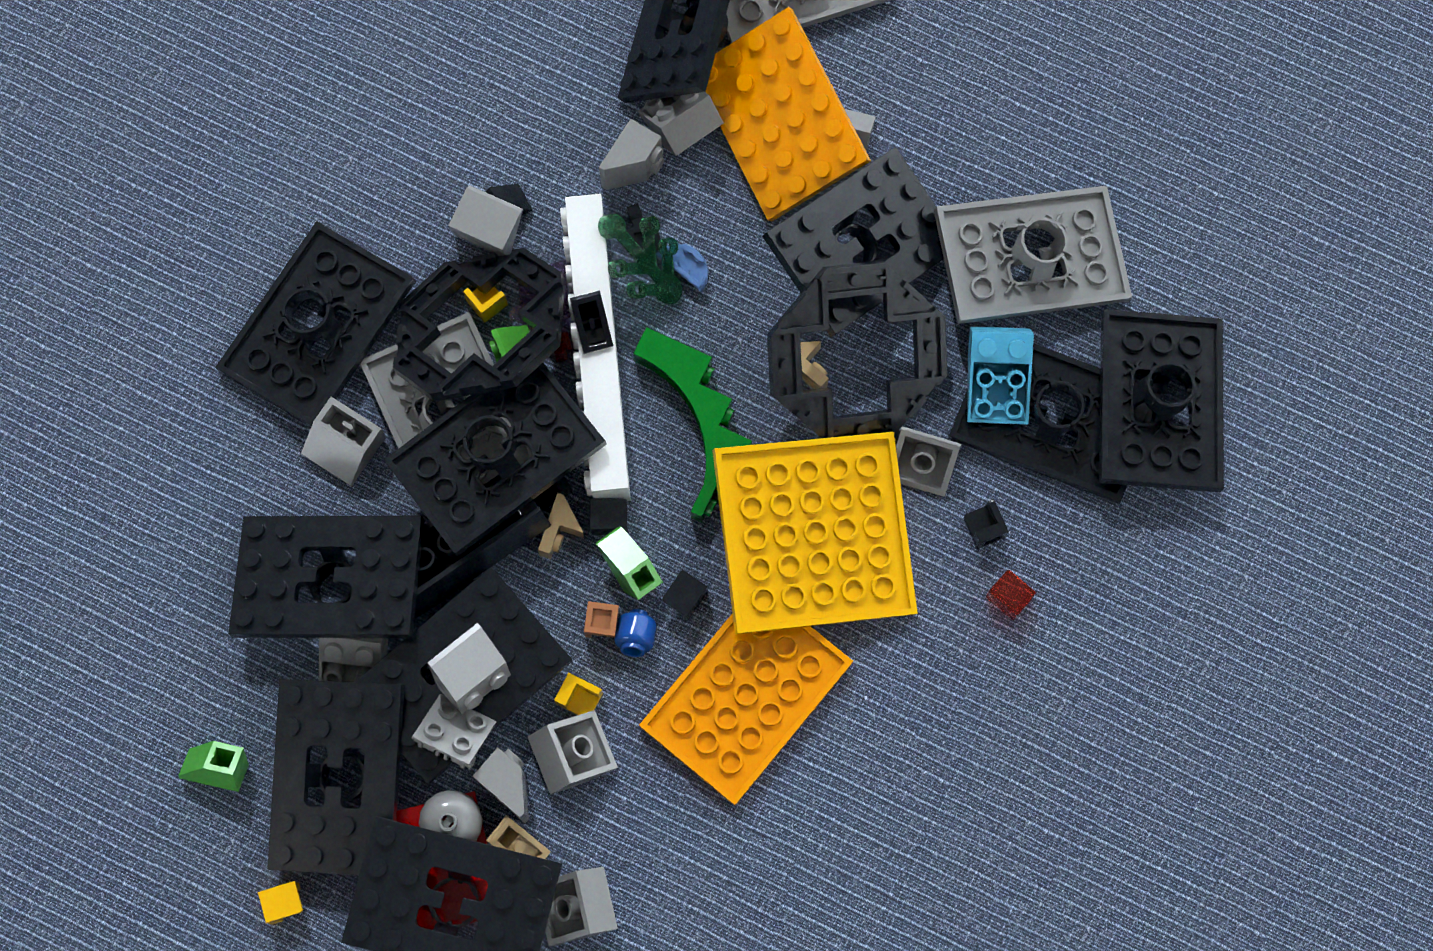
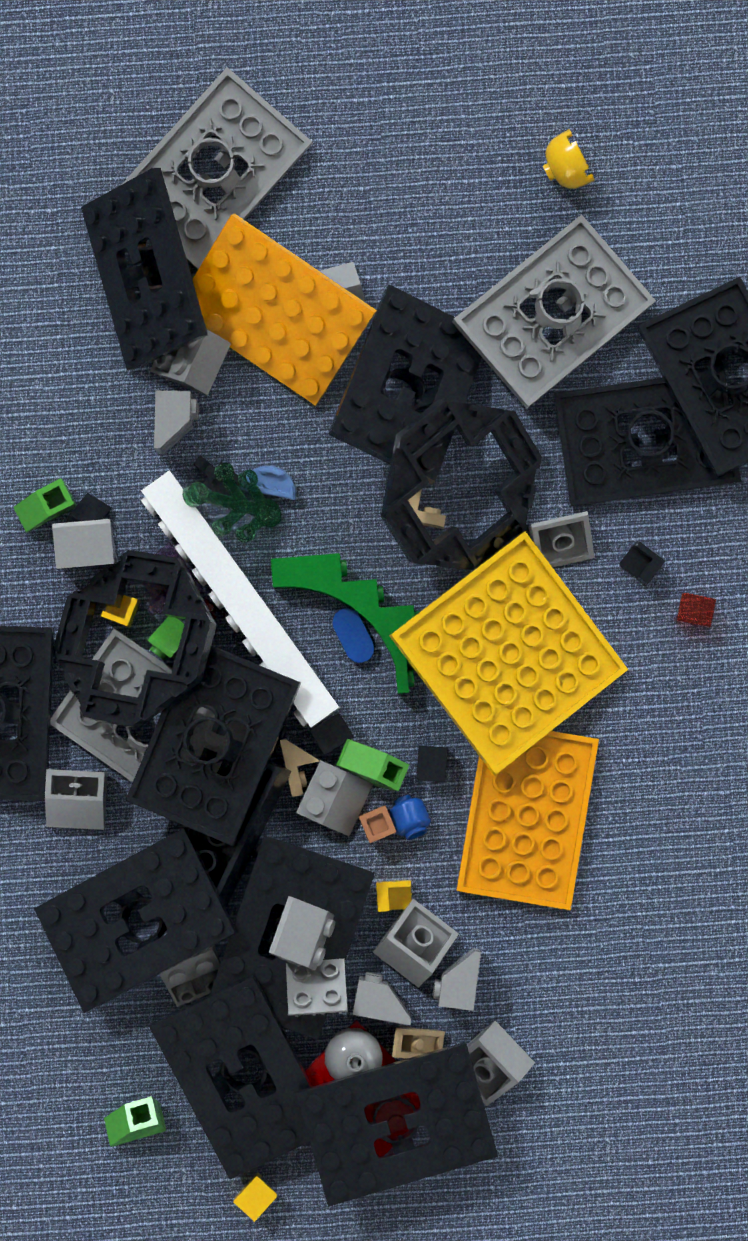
camera: 30 degrees left, 10 degrees up
(474, 168) = (45, 505): none -> bright green slope
(576, 575) = (334, 798): none -> light grey slope
(591, 322) = (229, 588): black slope -> none
(591, 809) = (459, 982): none -> light grey slope
(681, 441) = (353, 635): none -> blue tile
(999, 375) = (584, 432): medium azure slope -> none
(1119, 132) = (566, 162): none -> yellow cylinder

